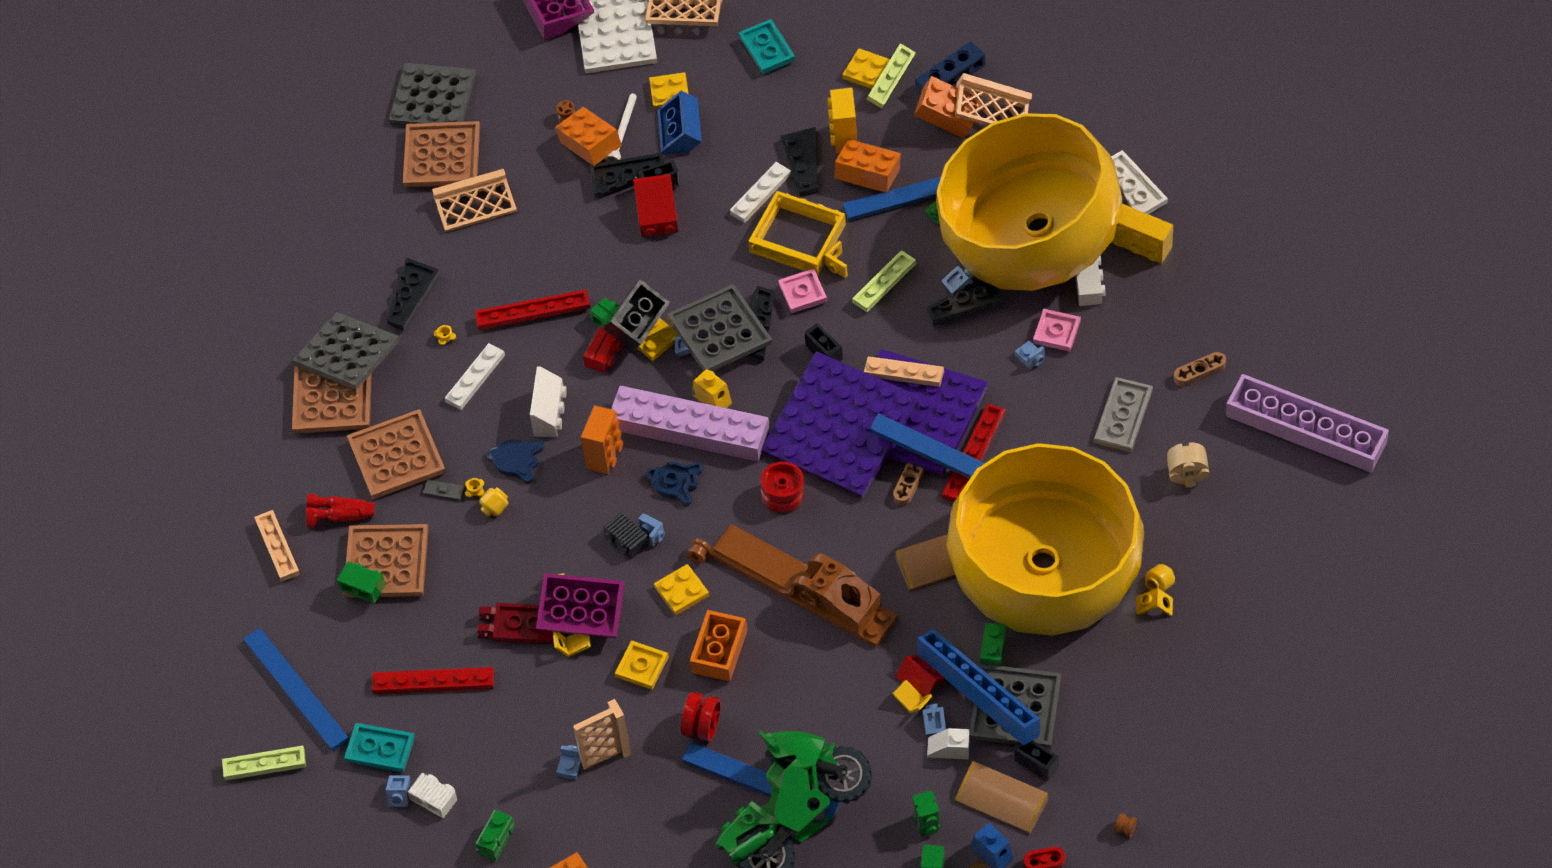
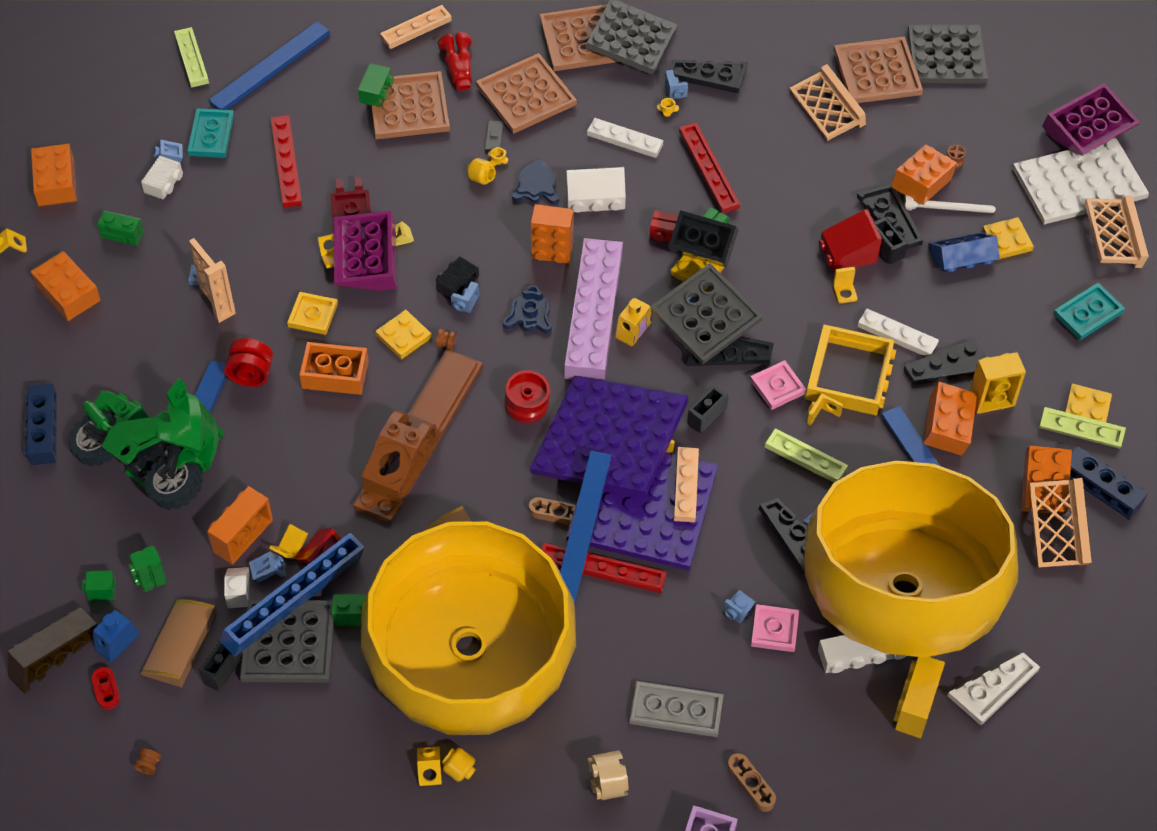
camera: 75 degrees right, 0 degrees up
(420, 326) = (673, 87): none -> medium blue bracket
(696, 223) = (844, 281): none -> yellow bracket
(889, 733) = (240, 525): none -> orange brick

